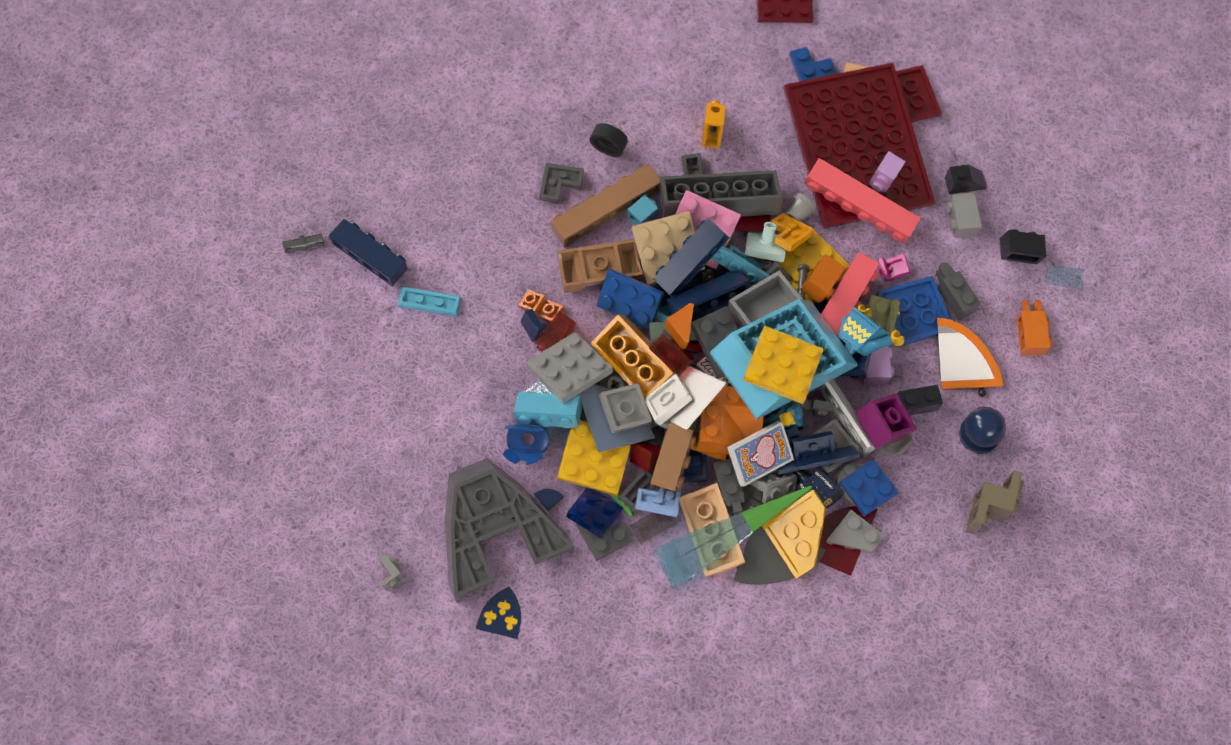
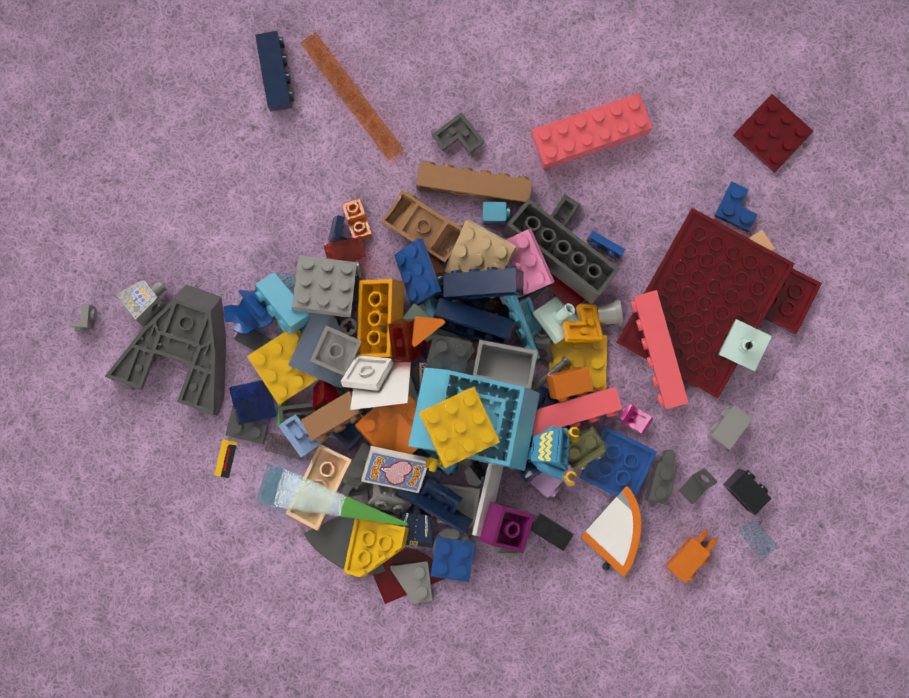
camera: 50 degrees right, 15 degrees up
(303, 243) = (237, 23): dark grey pin -> none
(427, 512) = (143, 300): none -> light grey torso
(429, 301) = (284, 146): medium azure tile -> none
(447, 222) = (352, 96): none -> clear orange tile
(501, 615) = (132, 413): dark blue sticker -> none
(545, 467) = (252, 340): none -> dark grey slope
(548, 497) = (234, 362): dark blue tile -> none
(608, 139) = (522, 135): black tyre -> none
(613, 580) = (225, 458): none -> sticker
(657, 97) = (591, 131): none -> coral brick
(713, 117) = (613, 189): light orange torso -> none
(750, 164) = (612, 249): none -> blue plate
(886, 172) = (696, 346): lavender brick -> none
(916, 146) = (745, 345): none -> light aqua tile
(964, 179) = (760, 401): black slope -> none
(982, 430) = (574, 594): dark blue tile -> none
(984, 277) = (696, 485): none -> dark grey bracket
(995, 502) = (528, 652): dark tan bracket -> none

